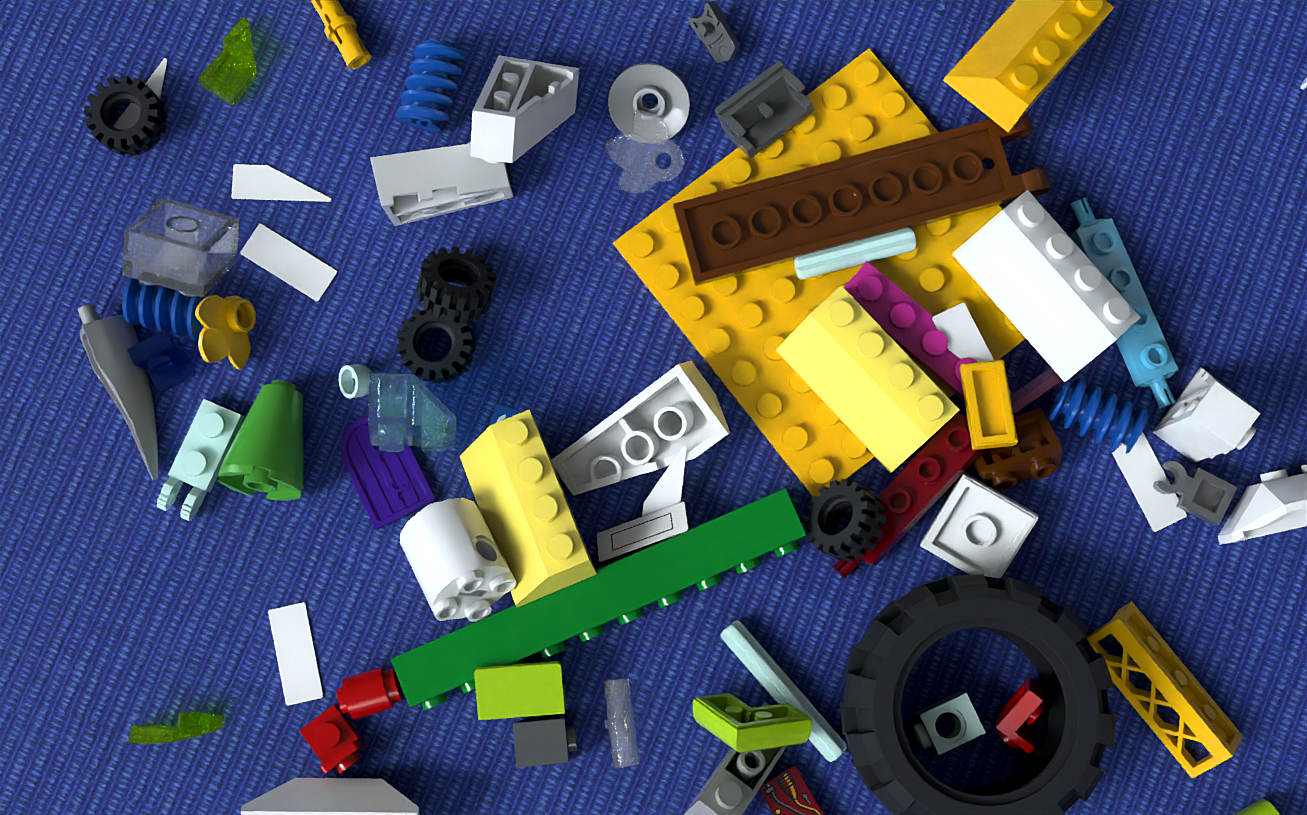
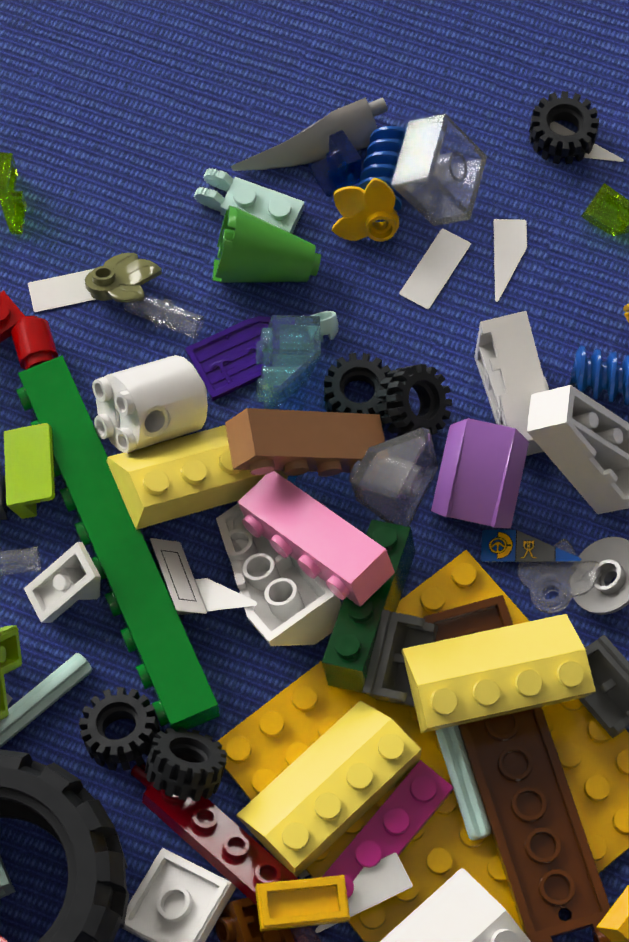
camera: 85 degrees right, 15 degrees down
(290, 595) = (121, 278): none -> olive plate
(334, 552) = (166, 315): none -> clear pin
(510, 394) = (300, 440): none -> medium nougat brick
(542, 221) = (480, 473): none -> medium lavender slope
(544, 308) = (396, 476): none -> clear slope
(611, 192) = (520, 547): none -> sticker
(617, 386) = (316, 538): none -> bright pink brick
(651, 651) = (63, 583): none -> white slope
(681, 335) = (356, 627): none -> dark green brick
(742, 305) = (387, 671): none -> dark grey hinge
(765, 208) = (497, 672): none -> light yellow slope
(781, 600) = (112, 709): none -> black tyre

